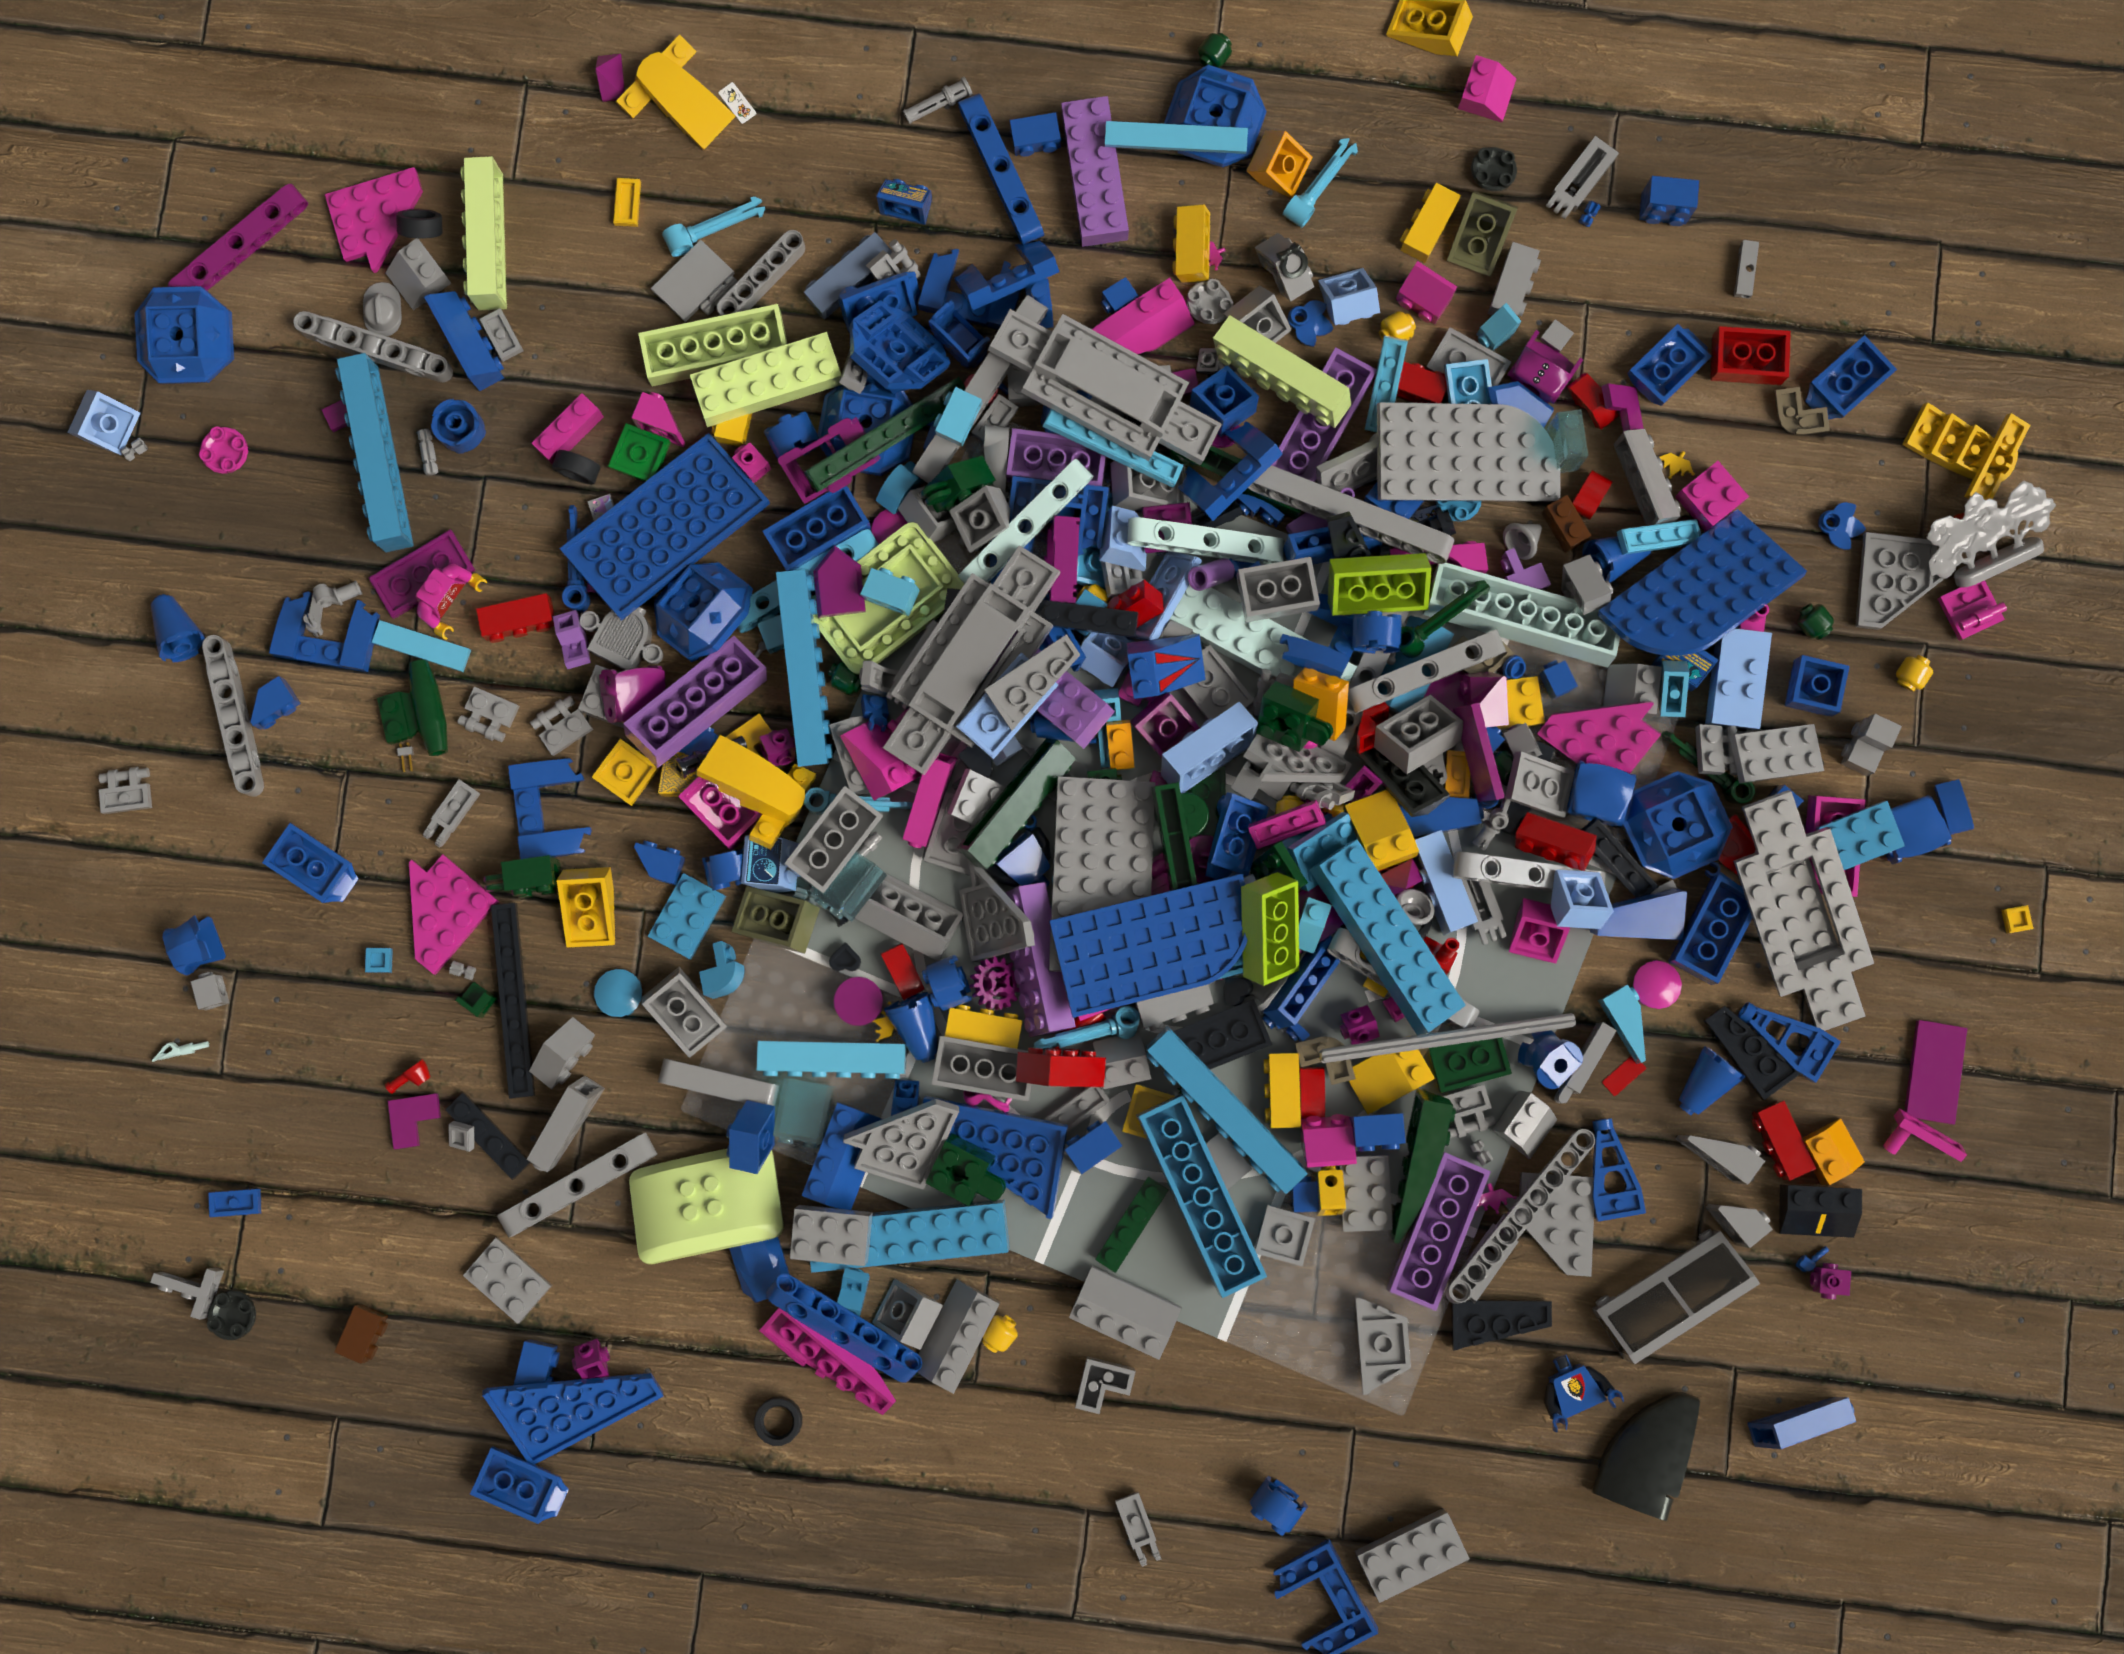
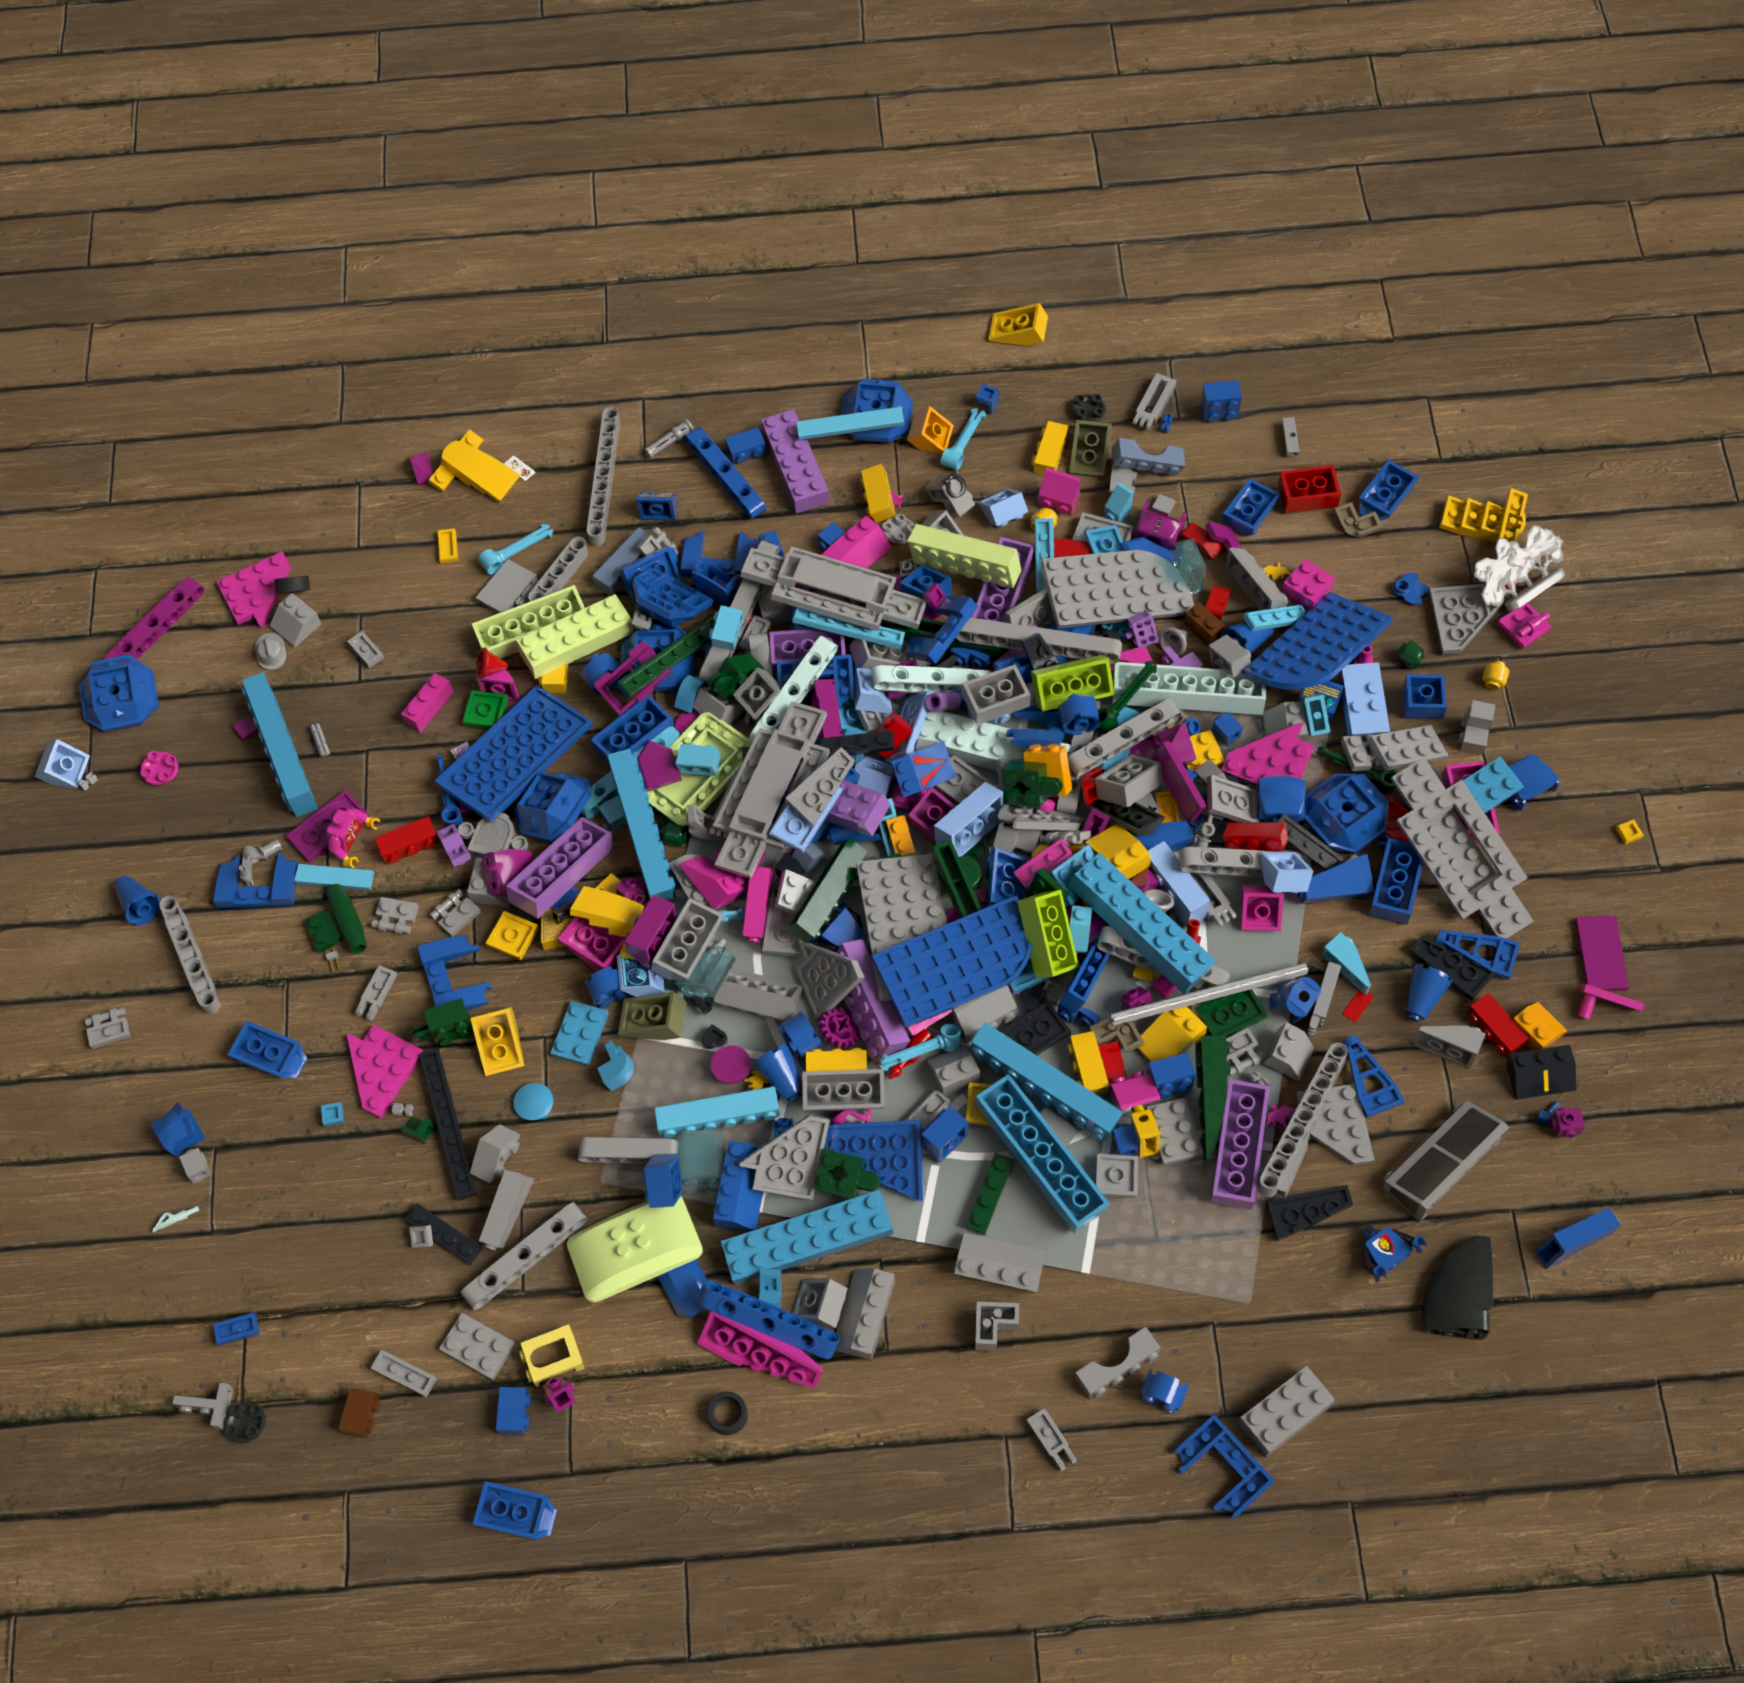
camera: 10 degrees left, 20 degrees down
(272, 702) = (221, 938): blue slope -> none
(378, 347) = (298, 677): light grey beam -> none
(404, 1117) = (372, 1230): magenta tile -> none
(416, 1074) = (375, 1195): red bar -> none
(418, 1296) = (403, 1373): none -> light grey plate
(465, 338) = (338, 655): blue slope -> none
(467, 435) = (341, 715): blue brick -> none
(484, 233) = (342, 582): yellowish green brick -> none
(561, 1413) = (540, 1440): blue wing -> none
(576, 467) = (438, 725): black tyre -> none
(615, 1308) = (539, 1374): none -> light yellow panel
(649, 405) = (488, 663): none -> red hat
(661, 864) = (552, 996): blue slope -> none
(683, 1012) = (590, 1103): light grey slope -> none
(751, 462) = (574, 697): dark pink brick -> none
(790, 821) = (650, 930): none -> magenta slope
(831, 1235) = (743, 1240): light grey brick -> none
(843, 130) = (603, 484): none -> light grey beam
(875, 710) = (702, 848): blue plate -> none
(902, 971) = (761, 1034): red slope -> none
(1000, 1333) = (899, 1302): yellow head -> none
(1038, 266) = (759, 525): blue wedge -> none
(1059, 1068) = (905, 1074): red brick -> none
(1215, 50) = (866, 369): dark green head -> none
(1231, 421) = (934, 596): none -> magenta tile
(1263, 1448) = (1096, 1378): none -> light grey arch
(1313, 322) = (979, 528): blue plate -> none
(1366, 128) = (988, 396): none -> blue panel
(1381, 1344) = (1217, 1245): light grey wing -> none
(1485, 517) = (1142, 629): none -> medium lavender piece
(1487, 89) = (1070, 359): dark pink slope -> none
(1528, 260) = (1129, 455): none -> sand blue arch
(1657, 984) = (1365, 932): dark pink dish -> none
(1741, 1224) = (1480, 1088): light grey slope -> none
(1954, 806) = (1555, 759): blue slope -> none

